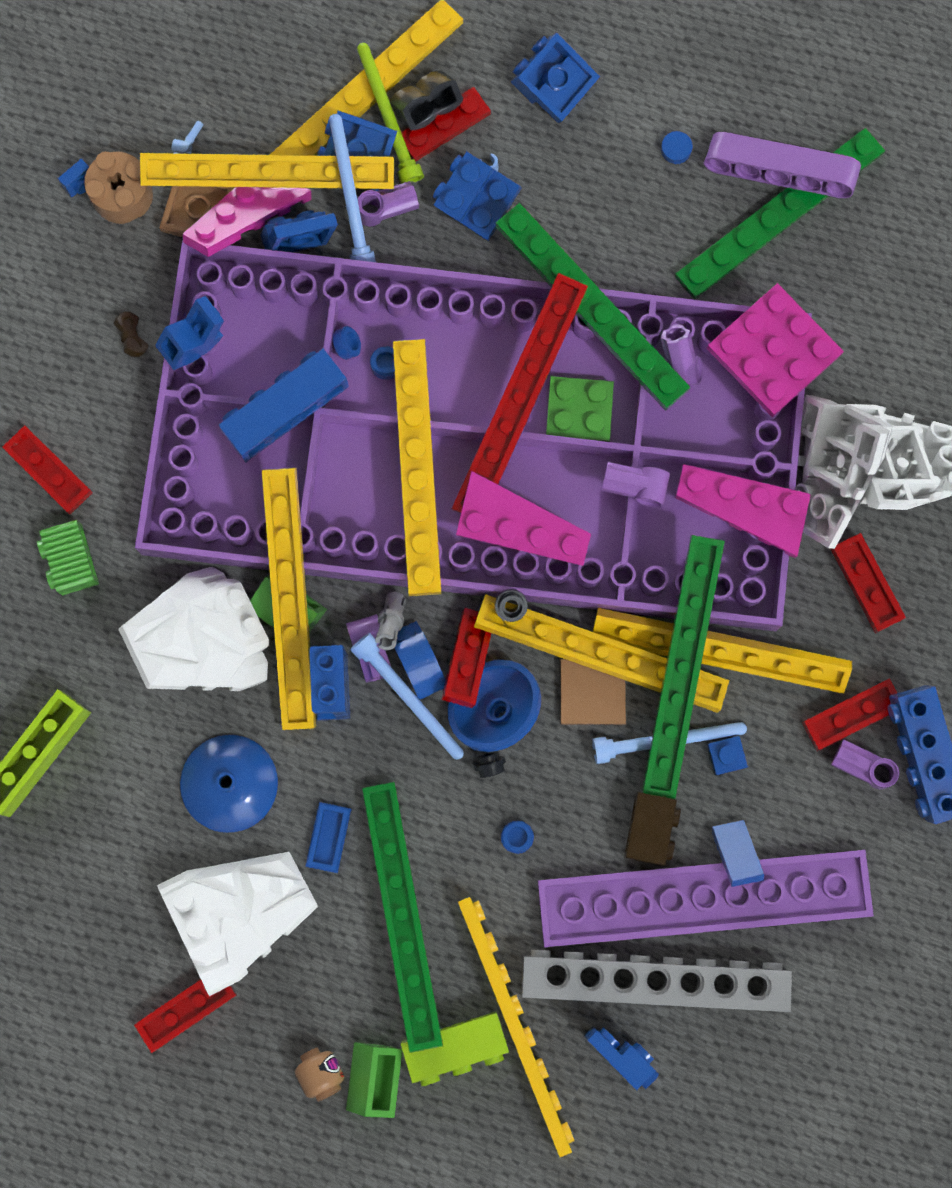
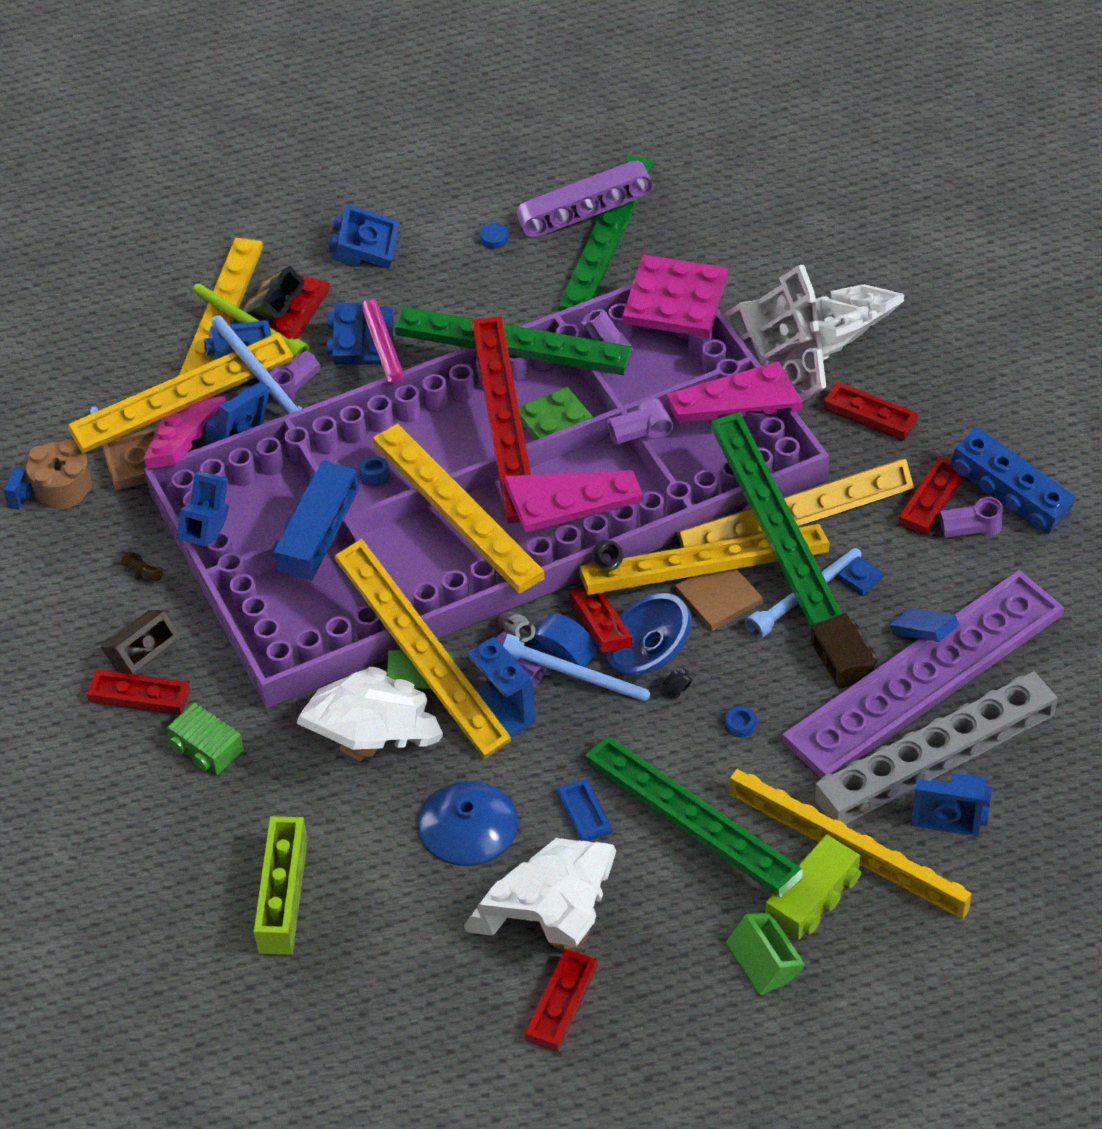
camera: 30 degrees left, 30 degrees down
(74, 422) = (140, 641): none -> dark brown brick
(319, 1074) = (716, 973): medium nougat head -> none
(477, 228) = (382, 341): none -> dark pink axle

